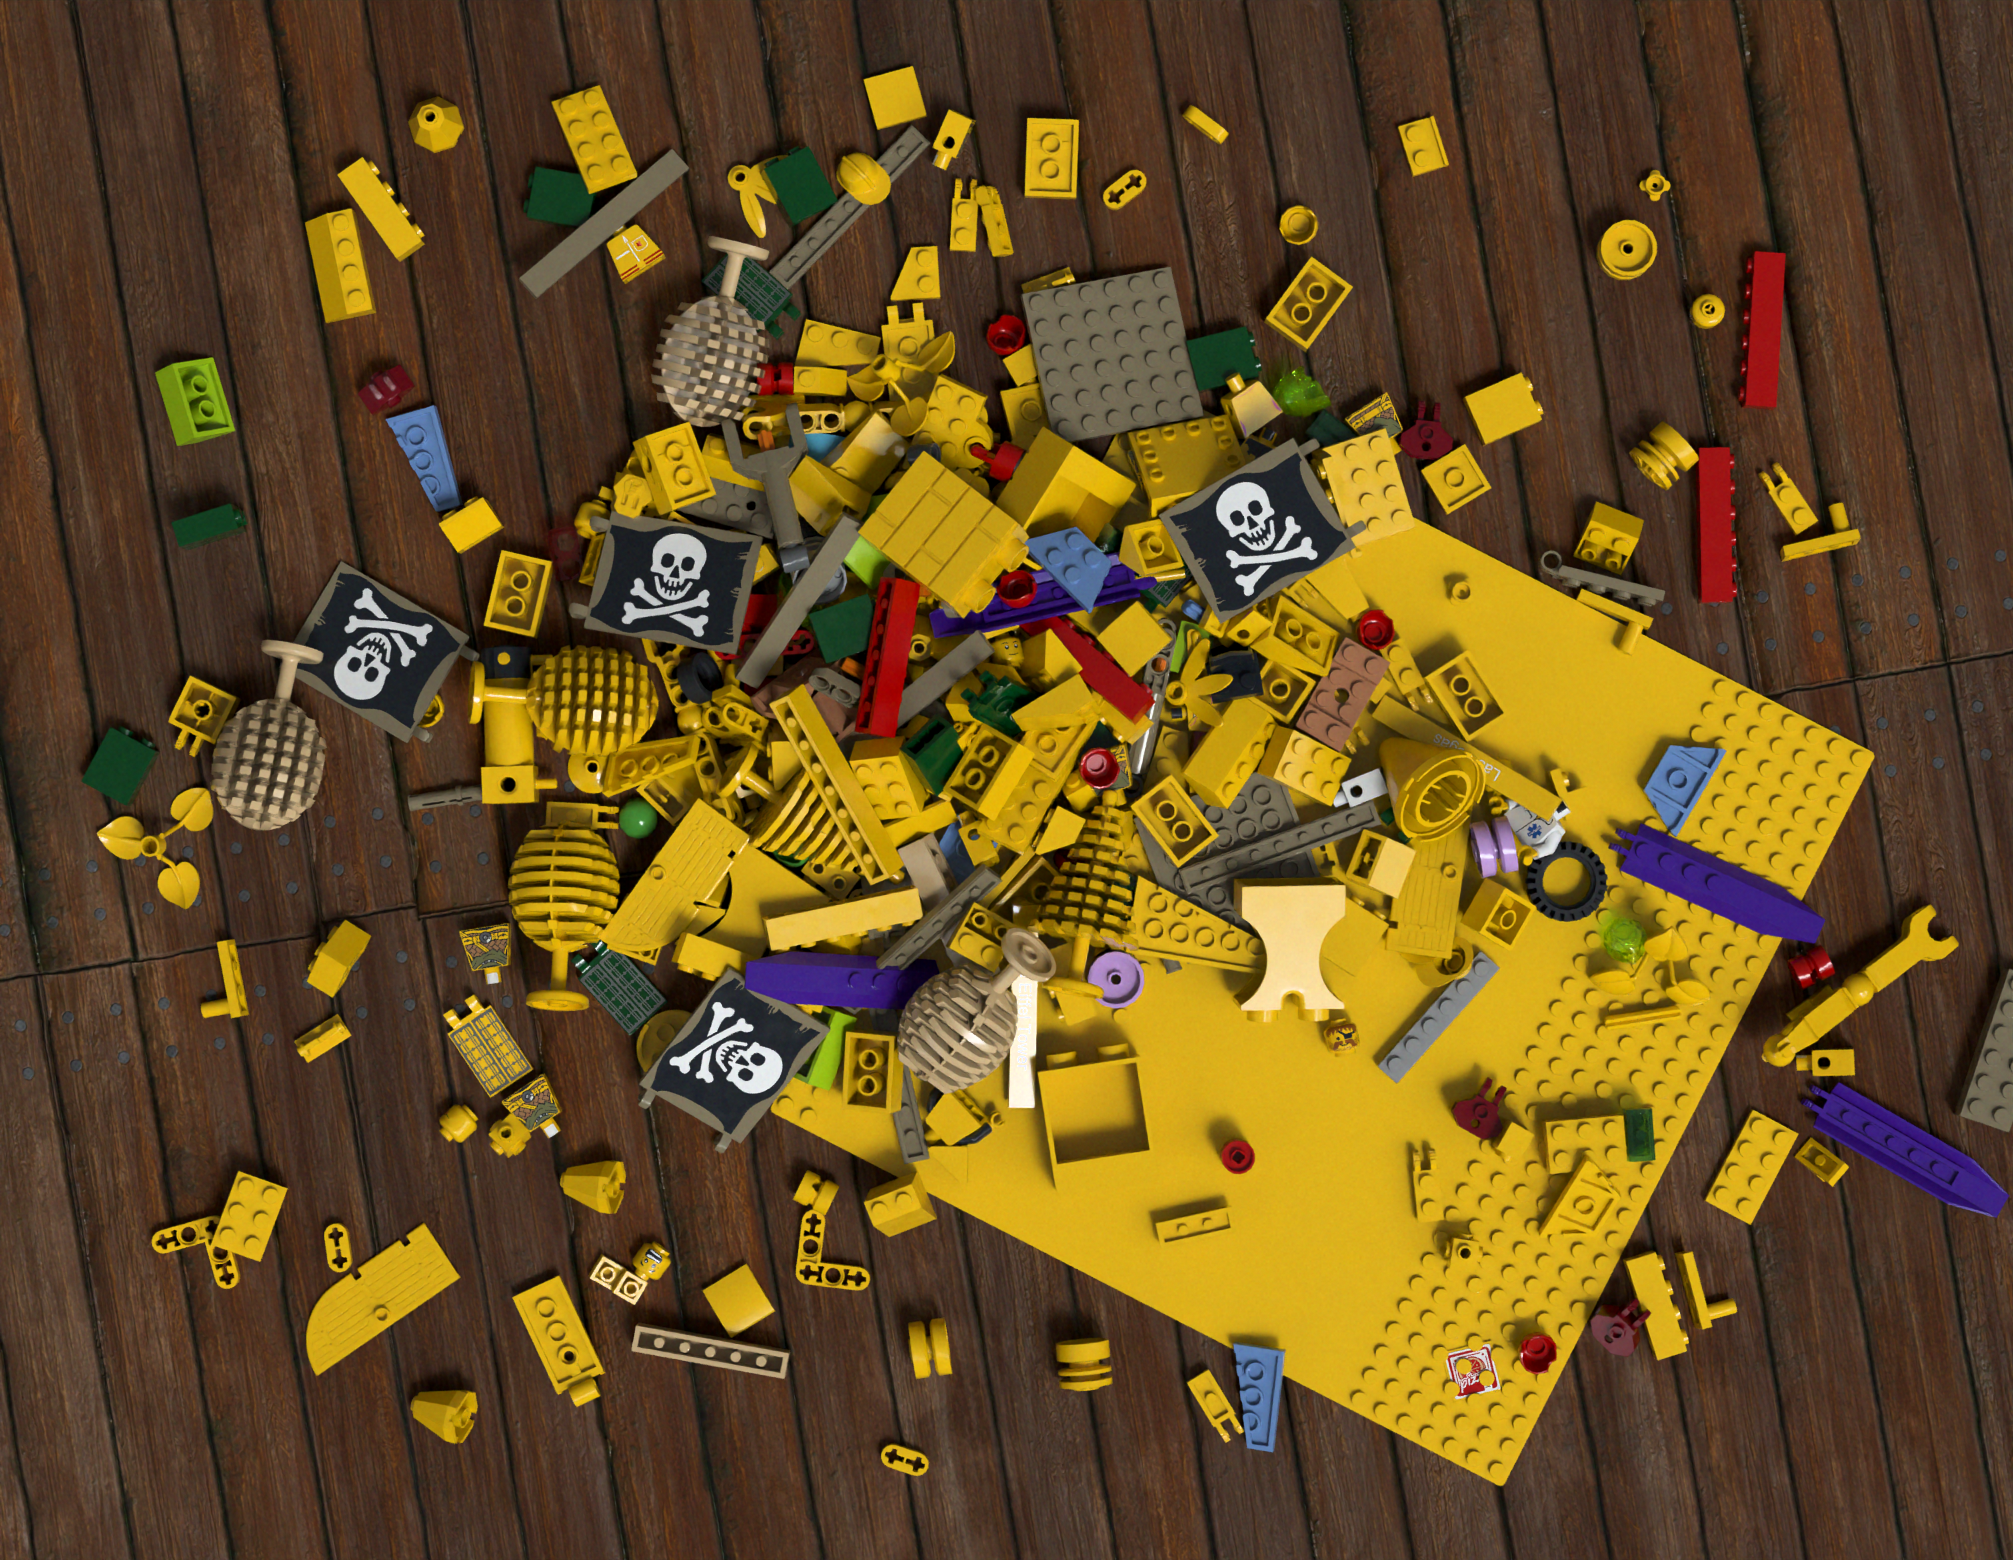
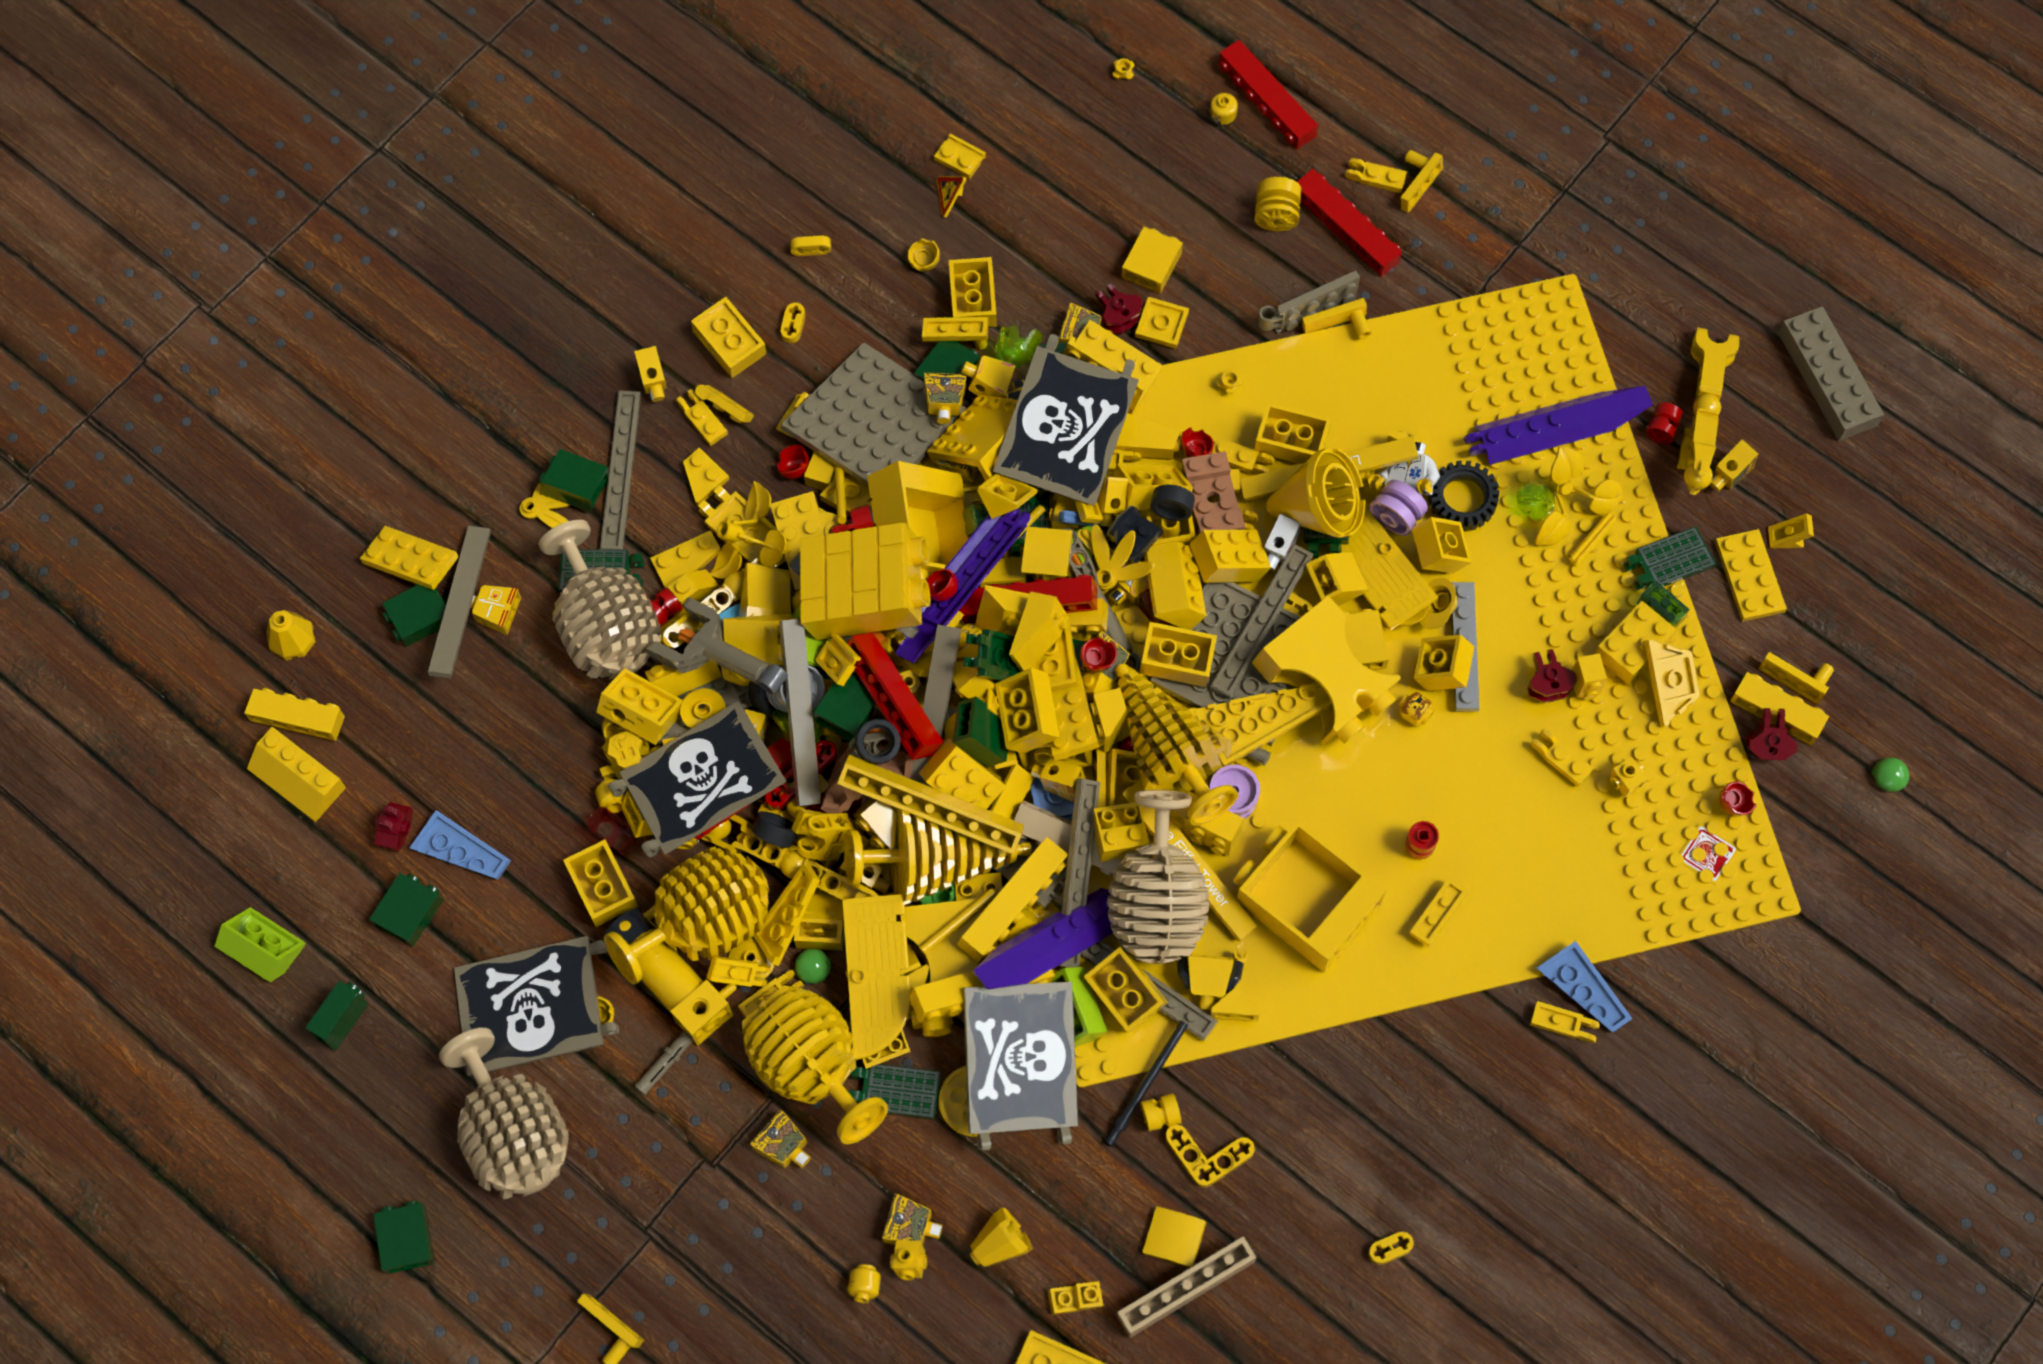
camera: 40 degrees left, 20 degrees down
(125, 834) = (448, 1288): yellow plant -> none
(188, 715) = (447, 1156): yellow hinge -> none
(322, 1038) = (713, 1309): yellow hinge -> none
(337, 957) = (676, 1238): yellow brick -> none
(340, 475) = (406, 909): none -> dark green brick
(470, 524) = (527, 864): yellow slope -> none
(487, 1047) = (839, 1212): yellow tile -> none
(567, 776) = (736, 971): none -> yellow hinge
(651, 1261) = (1088, 1262): yellow head -> none
(728, 513) = (689, 708): none -> yellow dish
(779, 1171) = (1121, 1122): none -> black bar
(782, 896) = (958, 921): none -> yellow bar
(836, 712) = (881, 724): none -> black tyre
(863, 178) = (613, 444): yellow piece -> none
(867, 585) = (837, 659): none -> yellow plate
(895, 98) = (593, 384): yellow tile -> none
(899, 1205) = (1228, 1068): yellow slope -> none
(928, 1348) = (1337, 1148): yellow wheel -> none
(1011, 416) = (840, 495): none -> yellow bar
(1072, 563) = (964, 544): medium blue wing -> none
(1084, 1364) = (1451, 1067): yellow wheel -> none
(1189, 392) = (944, 394): none -> torso
(1258, 331) = (957, 329): none -> yellow piece
(1291, 679) = (1172, 502): none -> black tyre
(1379, 178) = (949, 189): none -> piece
(1399, 1021) = (1444, 662): none -> yellow brick
(1608, 538) = (1289, 277): yellow slope -> none
(1632, 236) = (1141, 112): yellow wheel -> none
(1680, 782) = (1475, 381): medium blue wing -> none
(1693, 1096) = (1671, 559): none -> dark green tile
(1694, 1440) = (1890, 774): none -> bright green hair
(1906, 1150) = (1831, 482): dark purple hinge -> none

